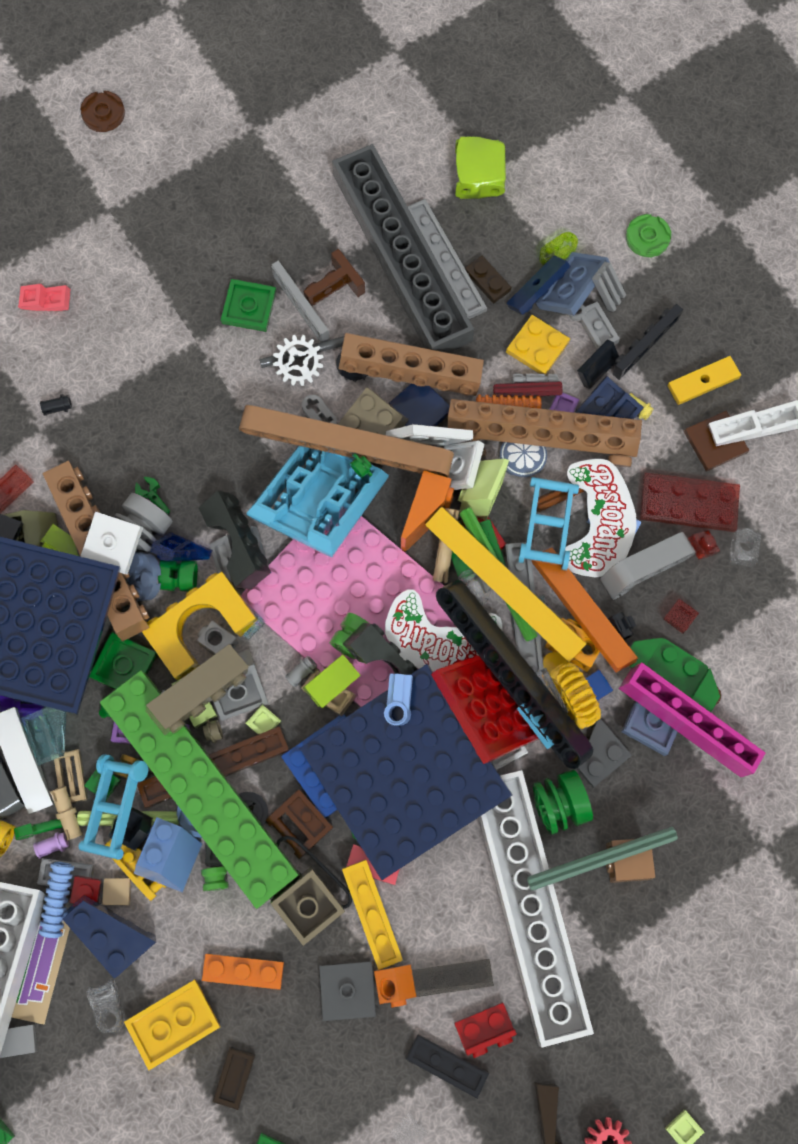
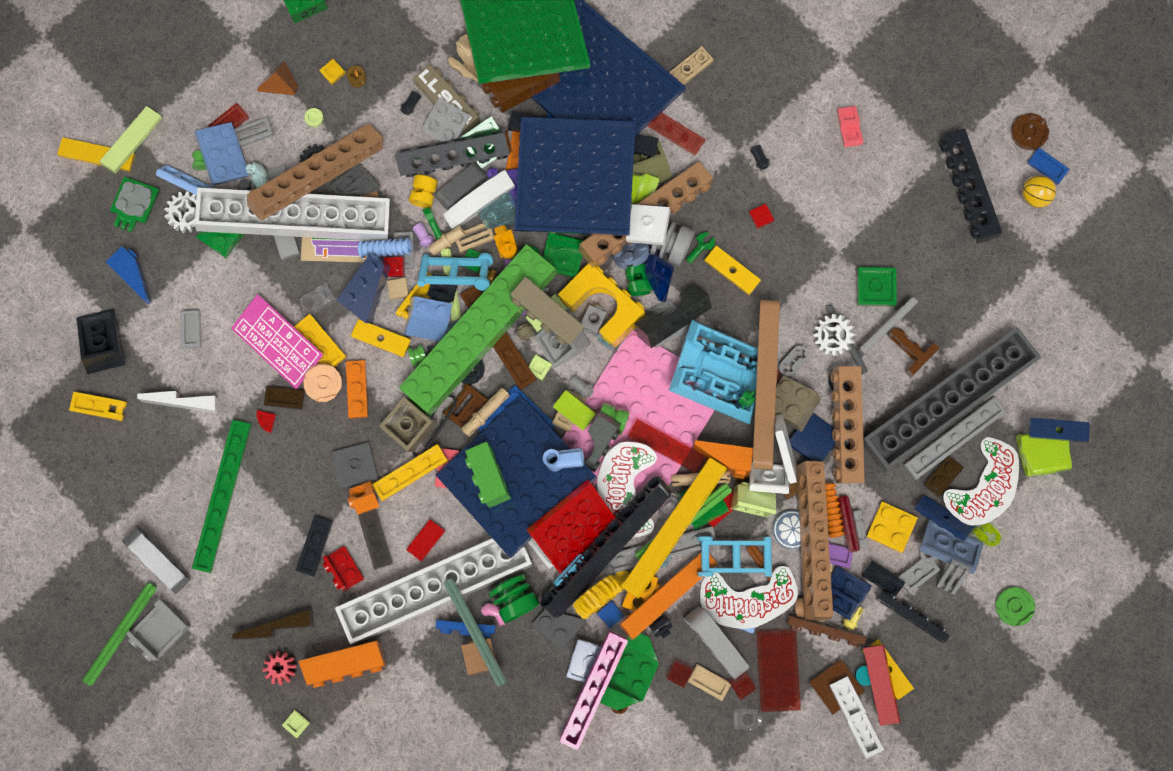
camera: 85 degrees right, 5 degrees up
(89, 733) = (505, 242): none -> light orange hips
(130, 418) = (761, 216): none -> red tile
(140, 177) = (973, 176): none -> black brick
(148, 101) = (1048, 166): none -> blue tile
(152, 1076) = (276, 341): none -> sticker
(170, 939) = (370, 334): none -> yellow tile
(176, 111) = (1039, 191): none -> yellow piece
(202, 453) = (723, 263): none -> yellow tile
(224, 1018) = (322, 382): none -> light nougat tile
(260, 1110) = (266, 420): none -> red tile
(313, 802) = (482, 415): none -> tan pin
(397, 579) = (666, 446): none -> clear red tile
(399, 806) = (487, 475): none -> bright green brick
(461, 140) = (1070, 430): none -> dark blue tile
(464, 909) = (425, 540): none -> red tile
(517, 228) = (995, 486): none -> sticker
(568, 837) = (490, 609): none -> bright pink arm
(583, 897) = (447, 627): none -> blue plate
(614, 1050) = (343, 663): none -> orange slope
(654, 431) = (817, 629): none -> reddish brown plate
(694, 582) = (709, 682): none -> tan tile
(707, 406) = (862, 676): none -> teal tile
(722, 388) = (882, 684): none -> tile

